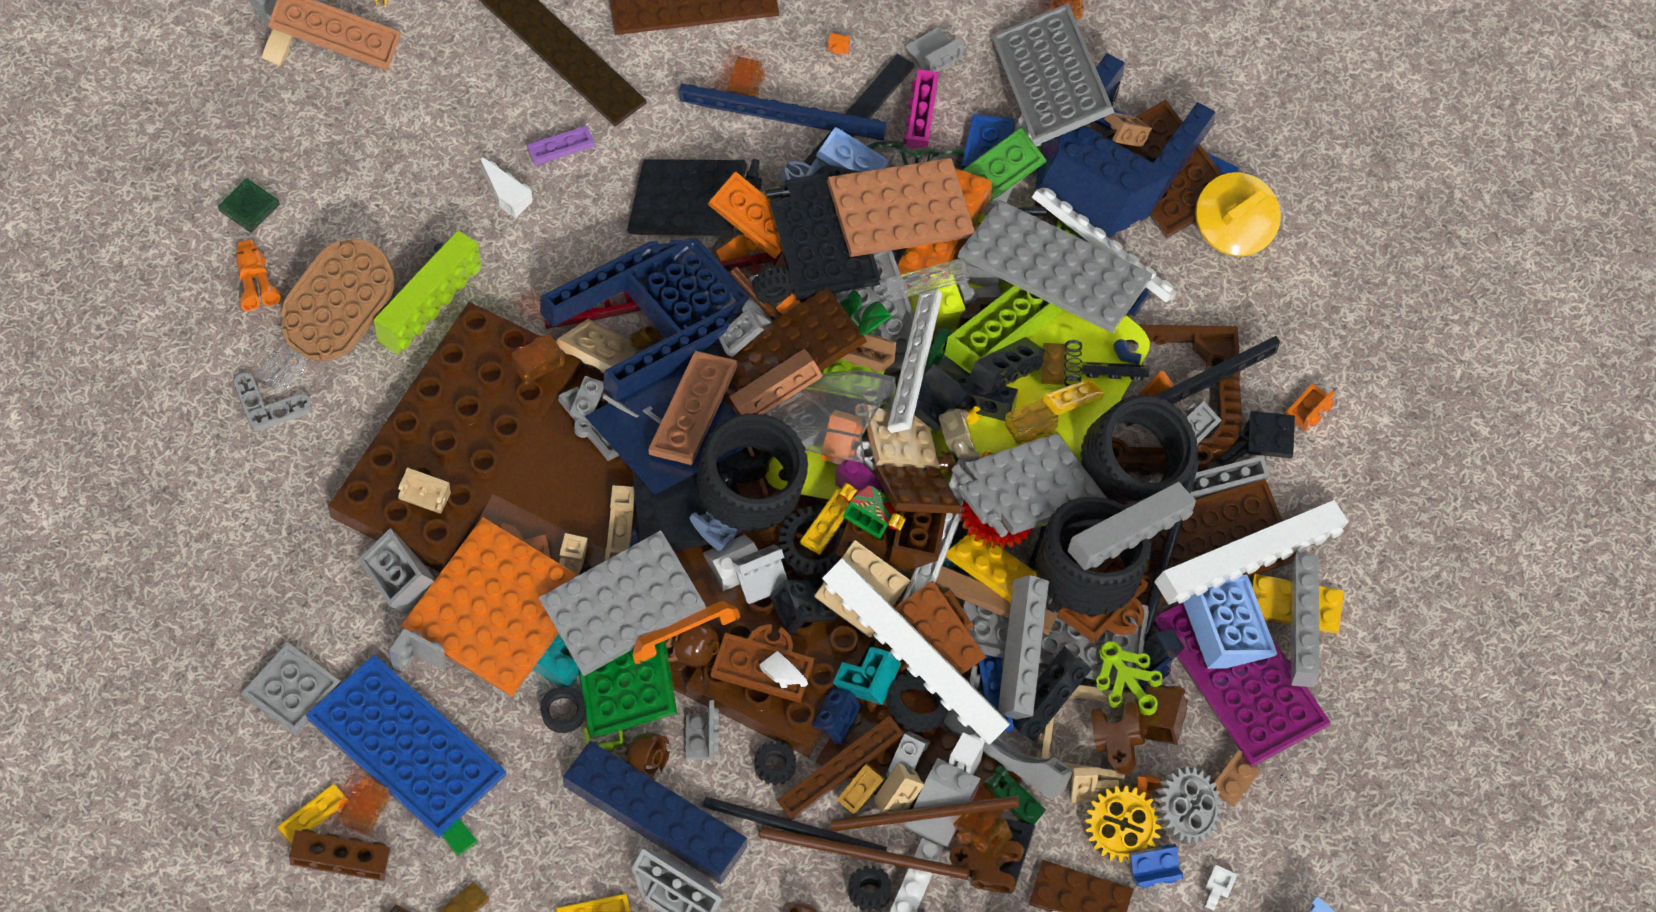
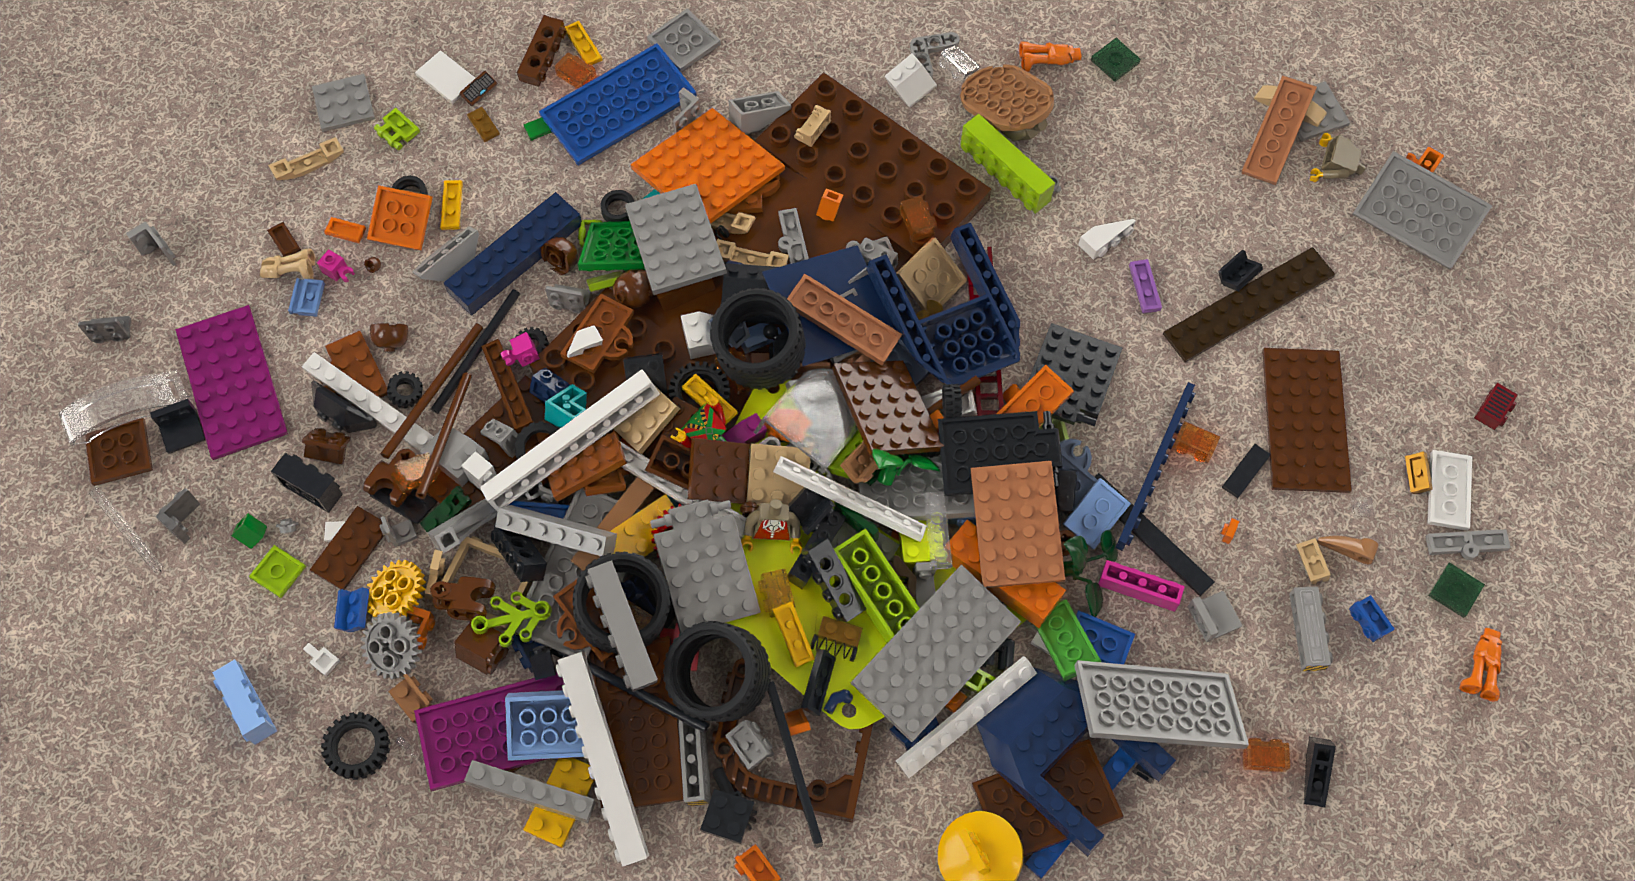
camera: 105 degrees right, 5 degrees up
(319, 413) = (910, 80): none -> white slope
(526, 57) = (1239, 271): none -> black bracket
(531, 455) = (829, 205): none -> orange brick
(587, 489) = (792, 239): none -> light grey hinge
(645, 644) = (648, 306): orange piece -> none
(684, 691) = (603, 281): none -> lime tile
(742, 331) = (914, 373): light grey bracket -> none
(760, 573) = (677, 342): bracket -> none
(764, 37) = (1246, 471): none -> black tile
(777, 384) = (847, 382): nougat panel -> none
(796, 753) = (522, 349): none -> dark pink brick
(861, 789) = (487, 399): pearl gold plate -> none
(898, 790) = (469, 421): tan hinge -> none
(1050, 845) = (399, 533): none -> light grey bracket
(1128, 129) = (1087, 762): medium nougat bracket -> none
(1312, 795) = (339, 729): none -> black tyre

